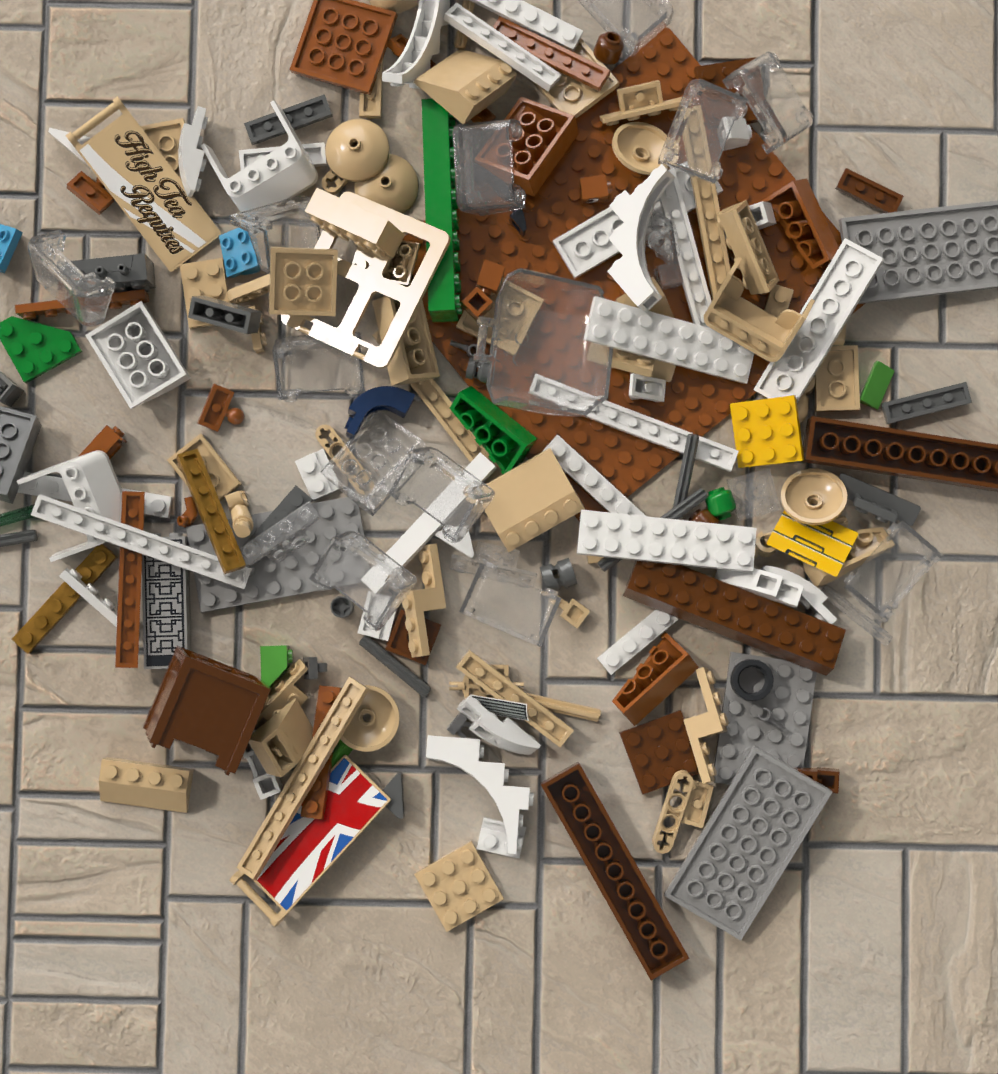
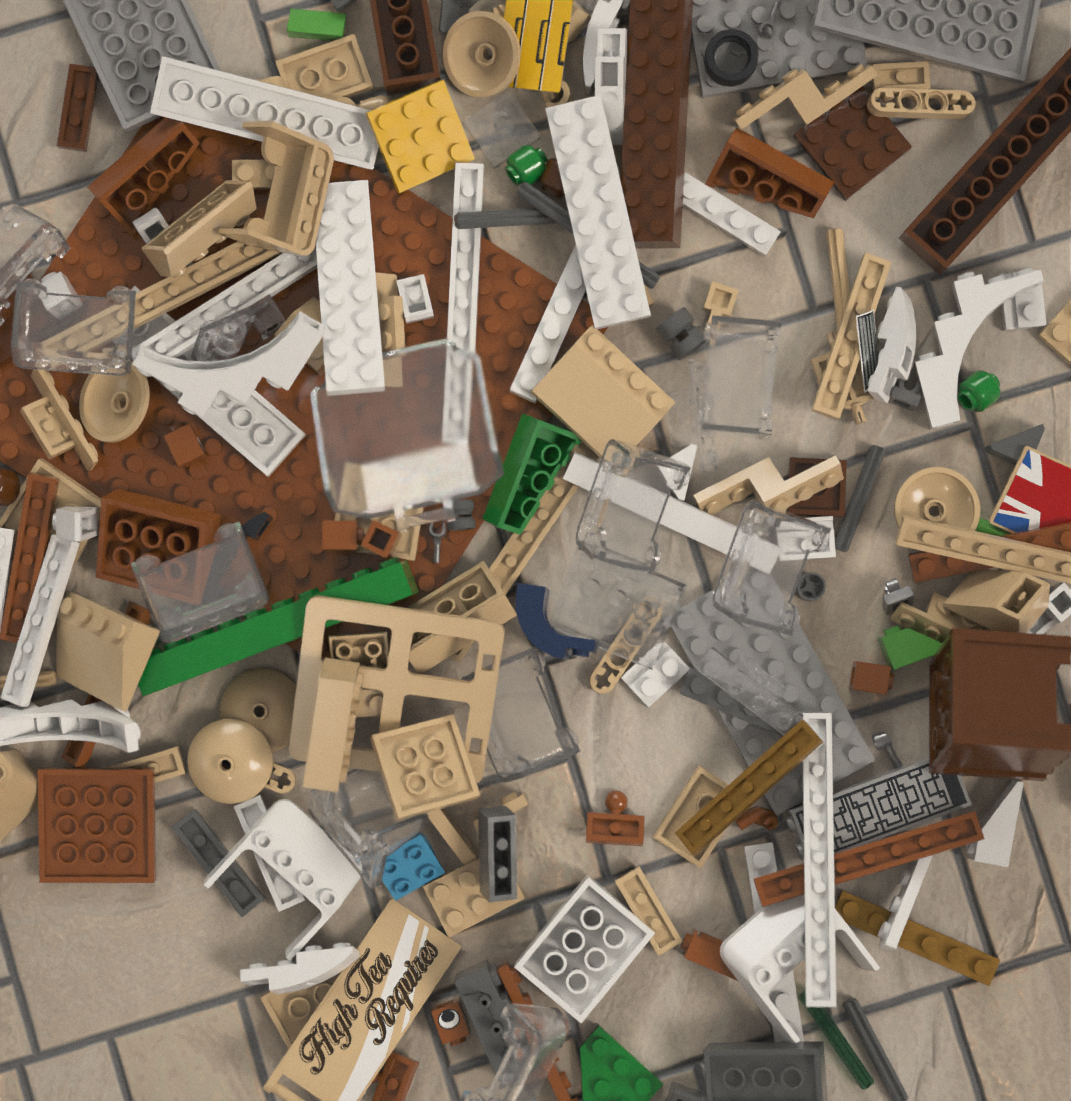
camera: 110 degrees left, 0 degrees up
(119, 244) = (451, 1022): none -> dark orange brick
(120, 682) = (998, 828): none -> white slope
(150, 412) = (648, 909): none -> tan plate
(213, 622) = (882, 740): none -> flat silver hand
(240, 515) = (742, 748): tan piece -> none
(260, 629) = (871, 678): none -> dark orange brick
(443, 780) = (979, 391): none -> green head
(562, 92) = (76, 523): none -> white slope

